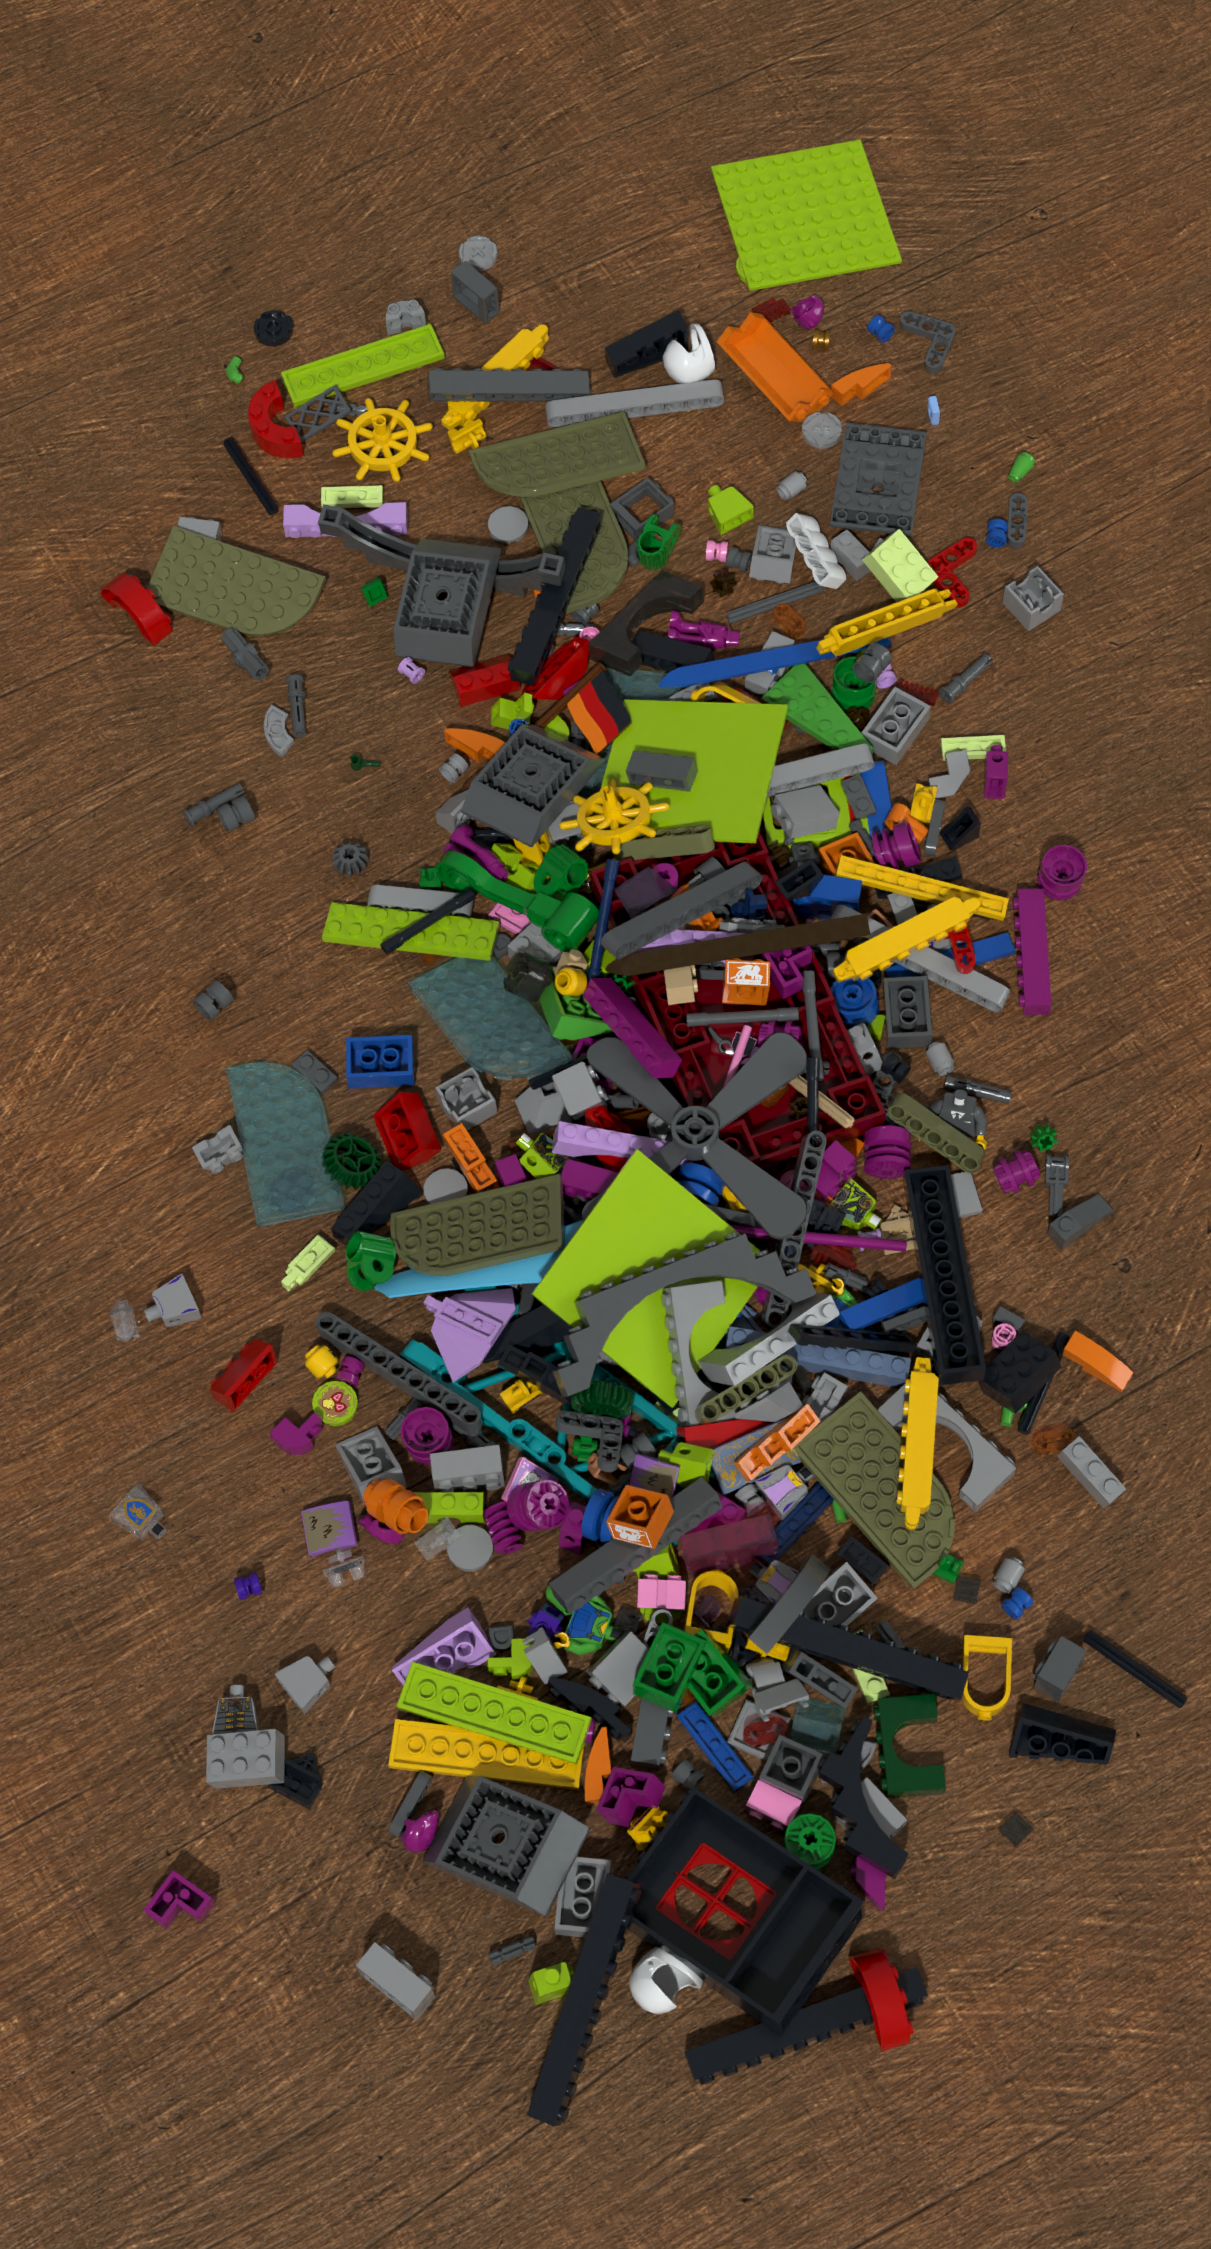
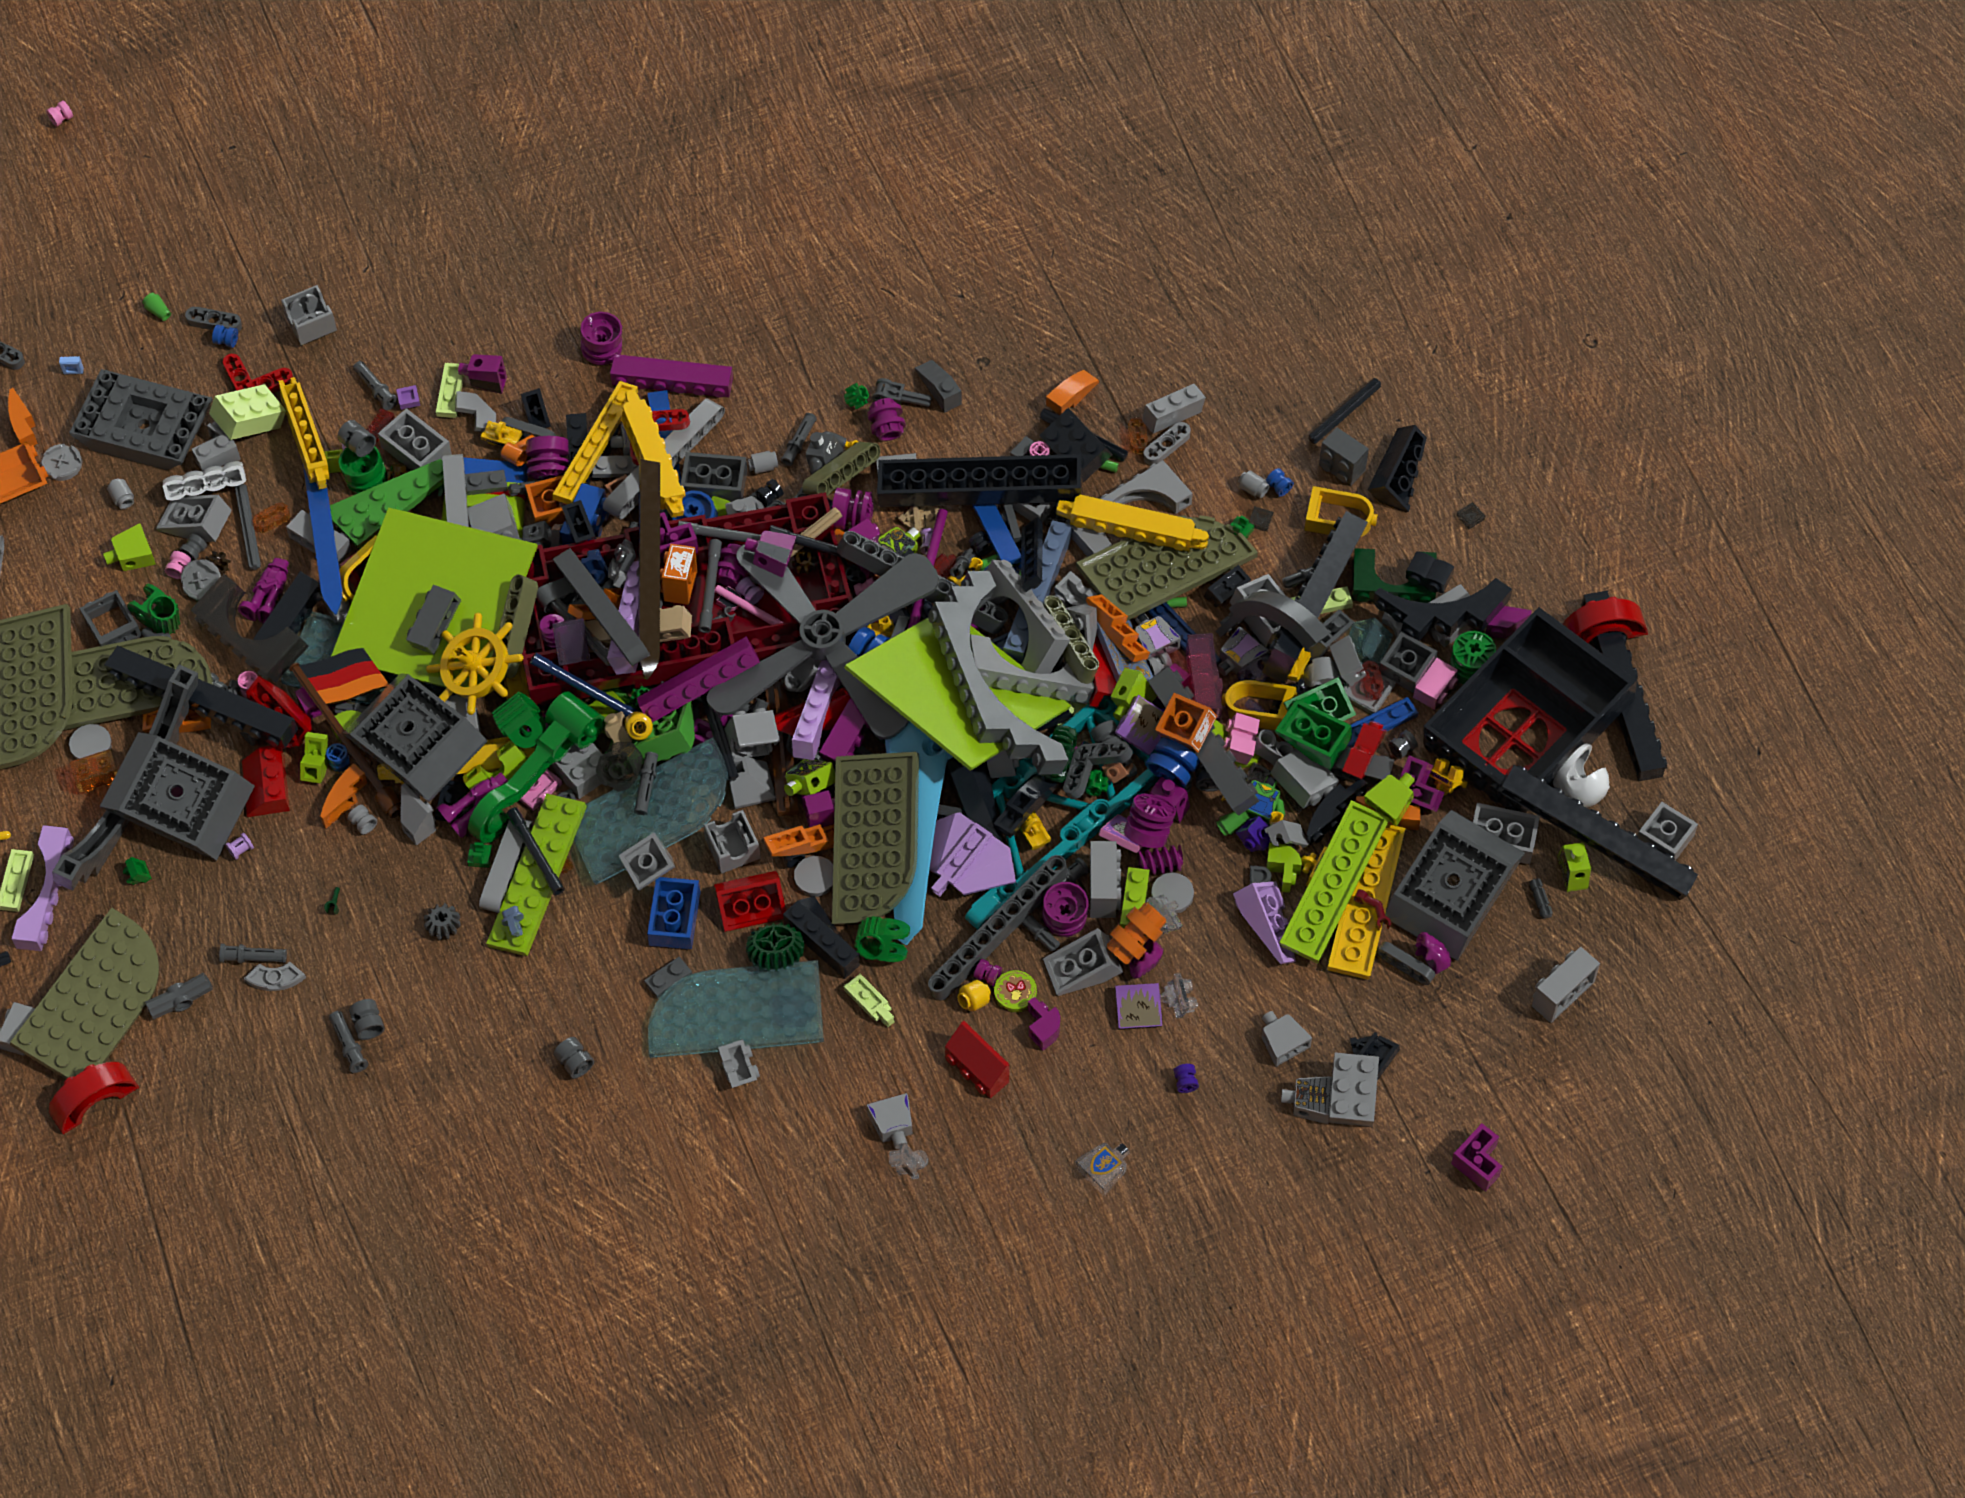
camera: 85 degrees left, 5 degrees down
(346, 916) = (512, 918): none -> sand blue piece
(426, 1023) = (647, 861): none -> light grey slope
(472, 529) = (94, 770): none -> clear orange brick
(479, 1748) = (1362, 898): none -> dark red arm
(510, 1003) = (647, 775): none -> dark grey pin
(600, 1762) = (1391, 797): none -> lime torso
(608, 2087) = (1668, 830): none -> light grey brick
(666, 1728) = (1364, 749): none -> red arch
(702, 571) = (199, 577): none -> light grey tile
(787, 1066) = (772, 551): none -> magenta torso
(909, 1779) = (1429, 572): none -> black brick
(956, 711) = (408, 397): none -> medium lavender plate
(1050, 1484) = (1169, 435): none -> light grey beam

